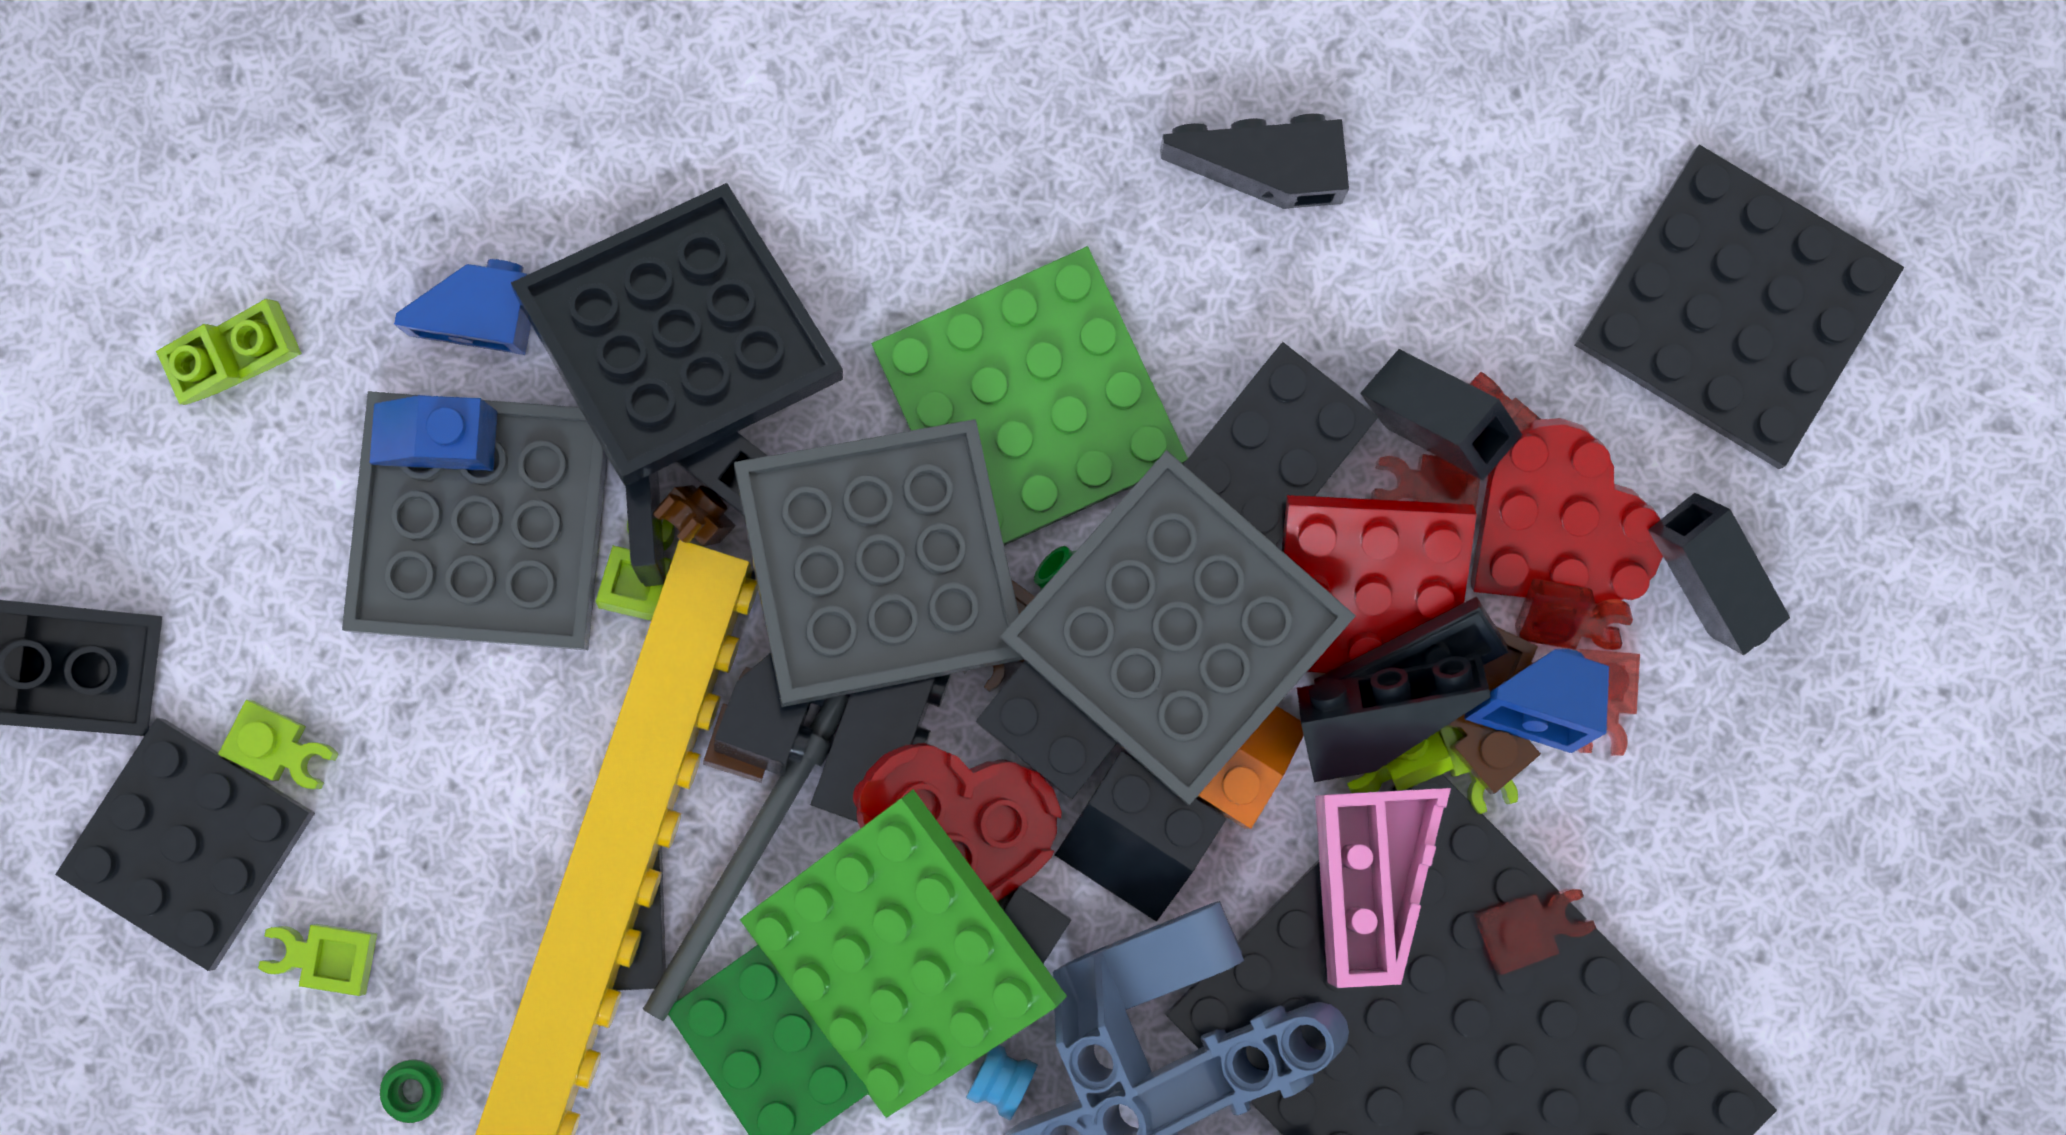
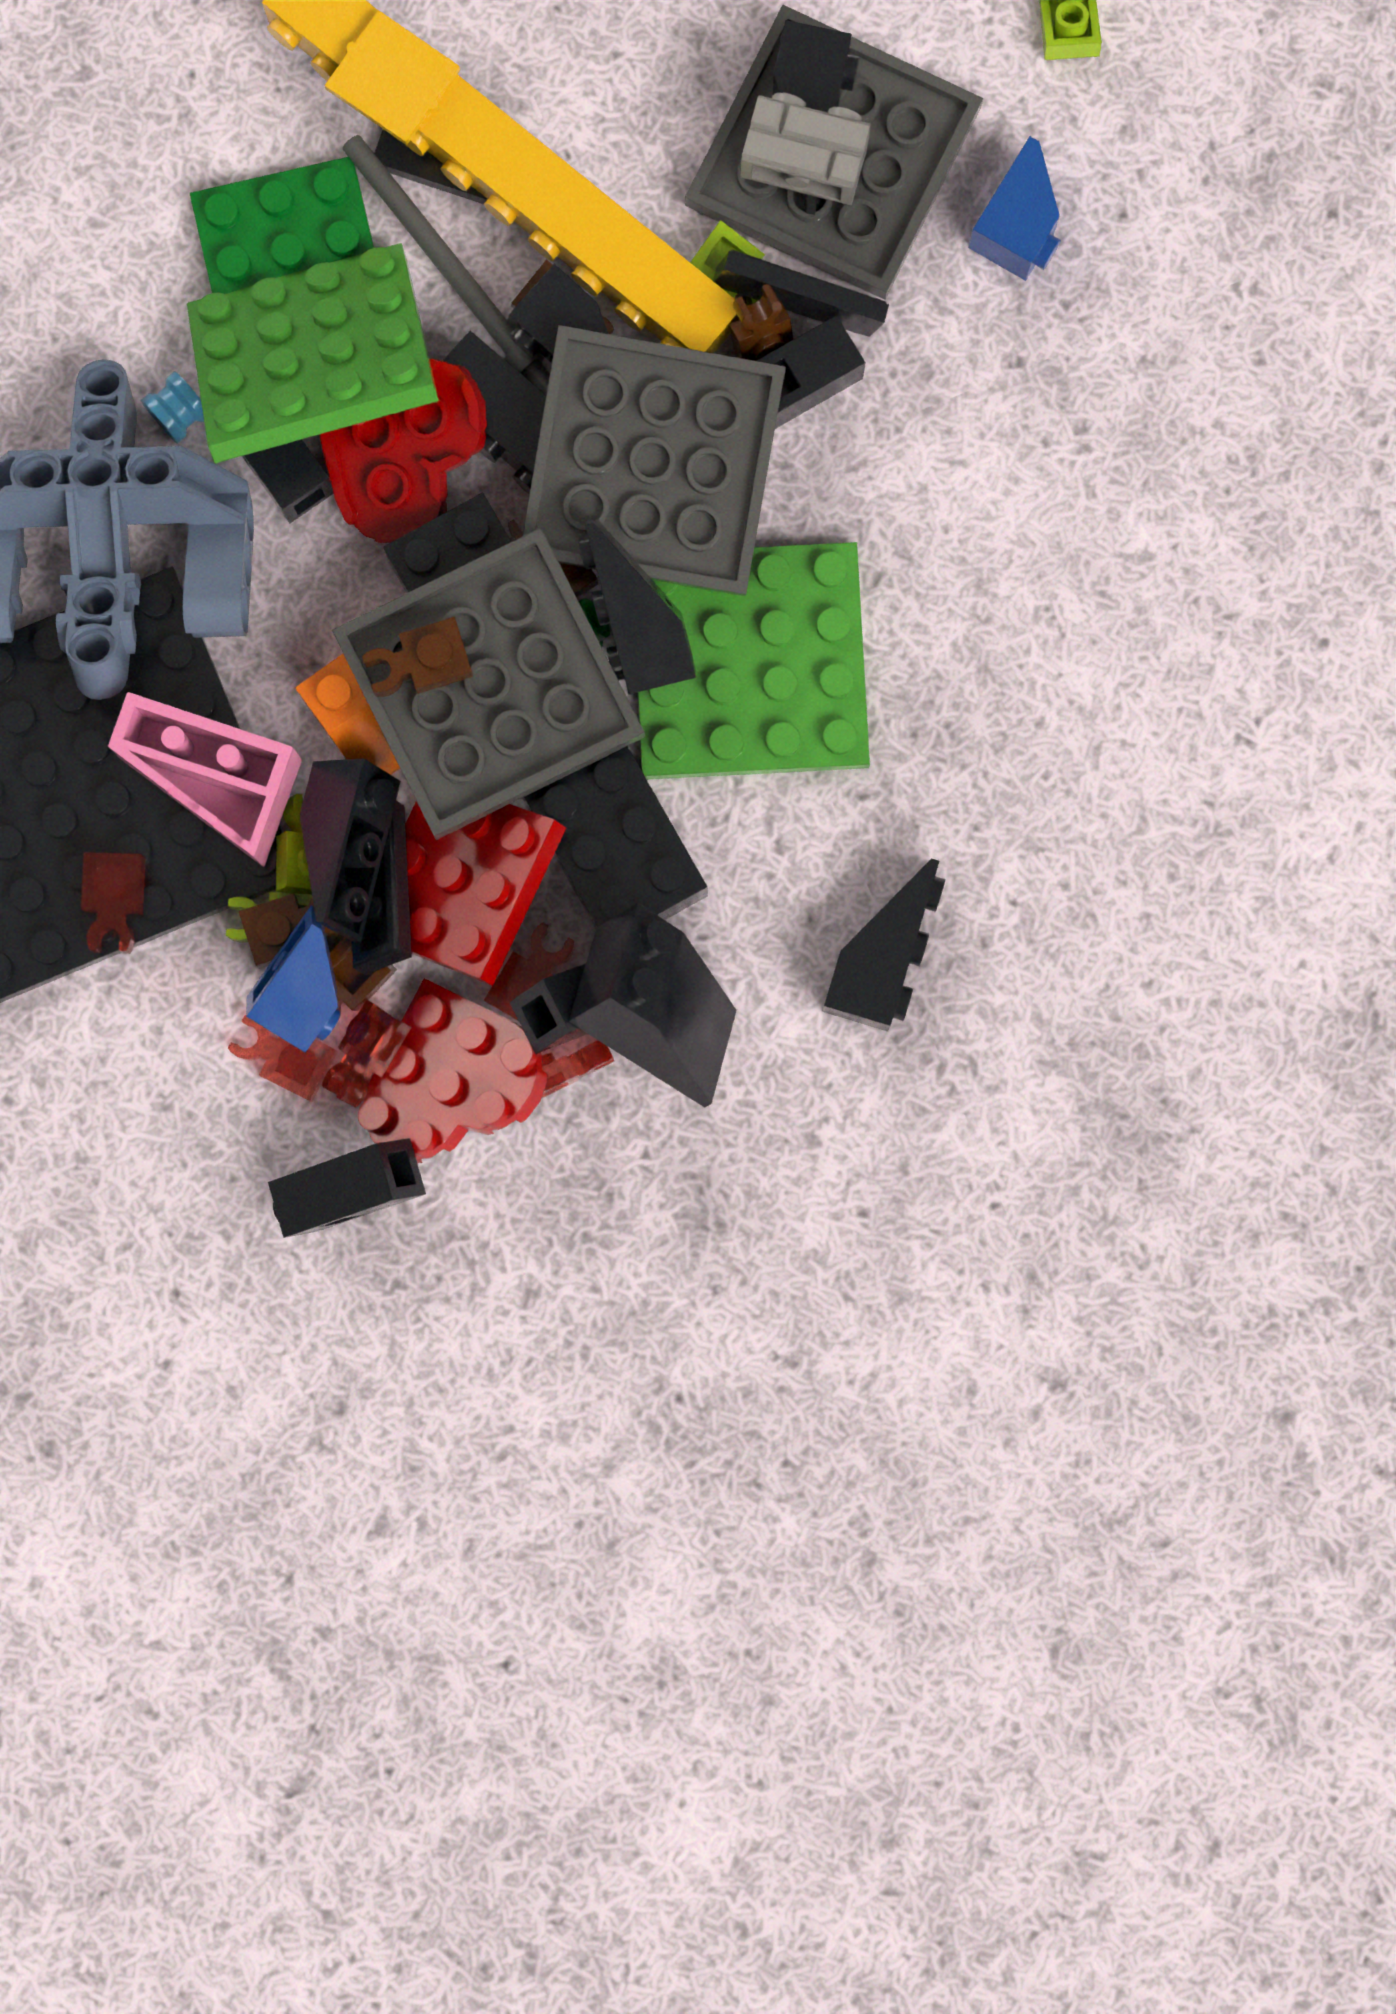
camera: 115 degrees right, 0 degrees up
(434, 433) = (917, 136): blue slope -> none
(435, 559) = (814, 67): none -> black slope
(499, 524) = (805, 148): none -> light grey brick
(577, 989) = (392, 77): none -> yellow piece
(676, 333) = (926, 369): black plate -> none
(1046, 501) = (645, 623): none -> black slope
(1139, 837) = (324, 593): black slope -> none
(1180, 691) = (429, 656): none -> reddish brown plate
(1422, 345) = (655, 1002): none -> black slope
(1739, 307) = (583, 1328): black plate -> none

